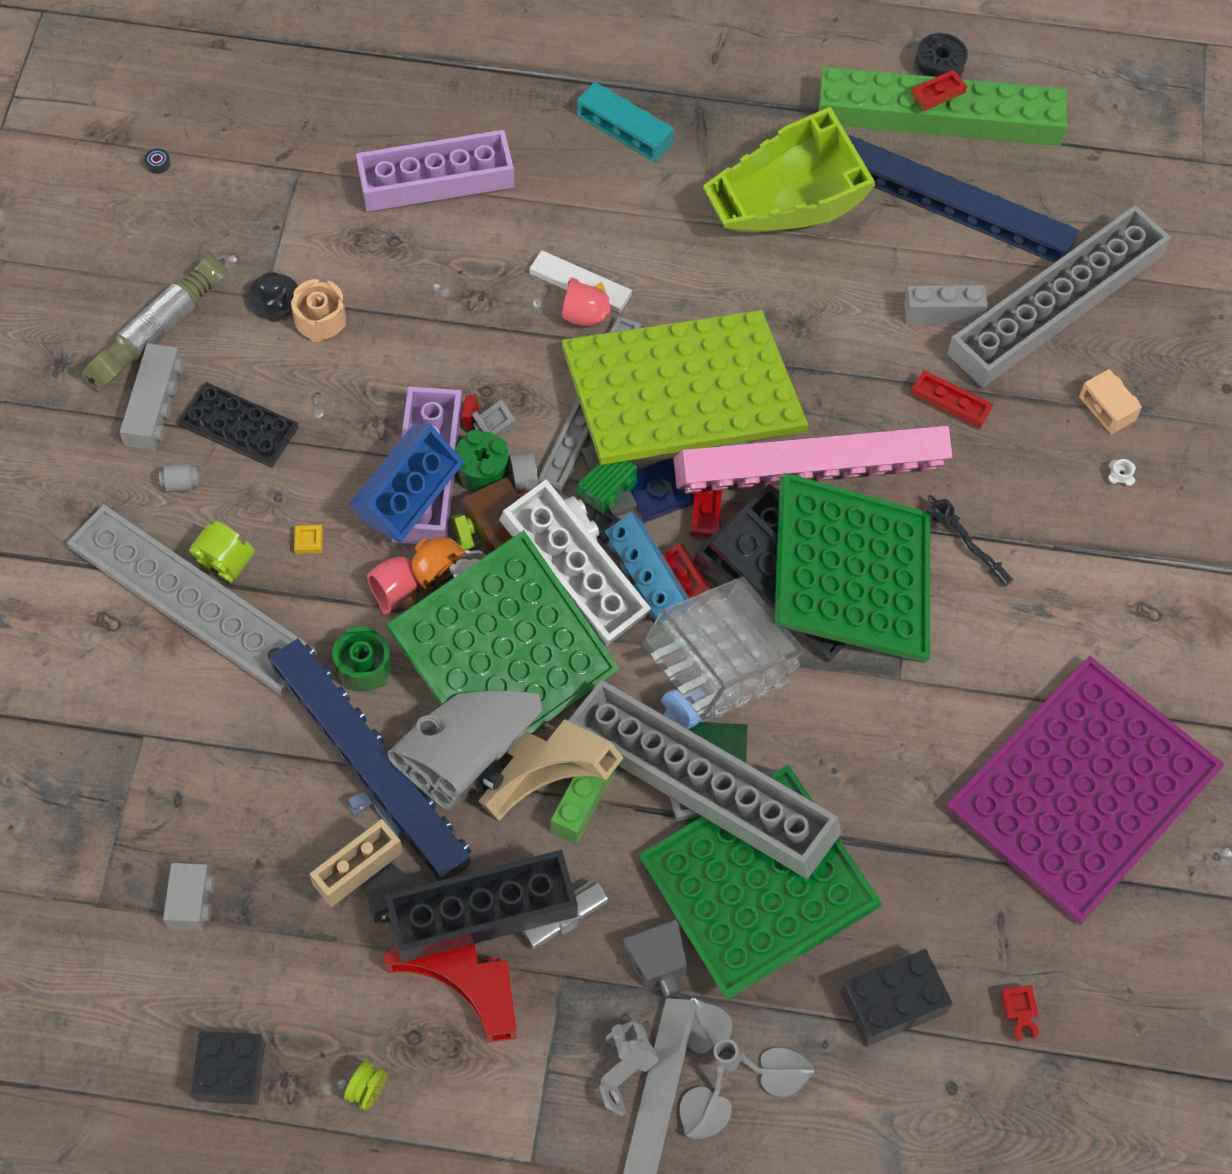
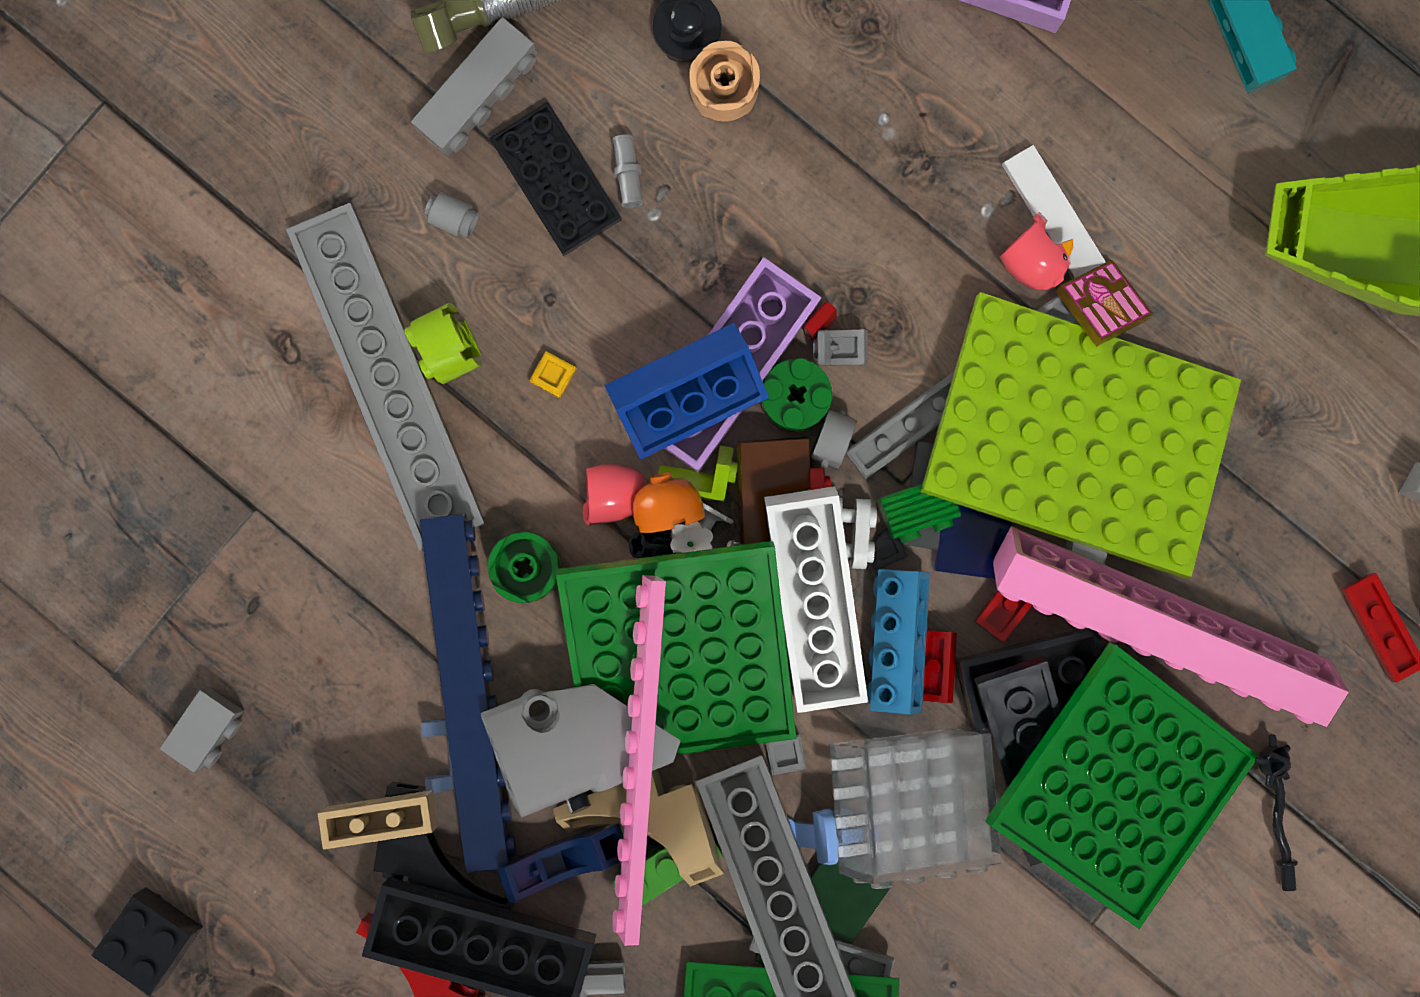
camera: 30 degrees right, 25 degrees up
(285, 394) = (627, 171): none -> light grey pin
(511, 830) = (561, 860): none -> dark blue arch
(520, 713) = (640, 745): none -> bright pink plate
(623, 682) = (786, 756): none -> light grey tile
(645, 308) = (1104, 302): none -> tile

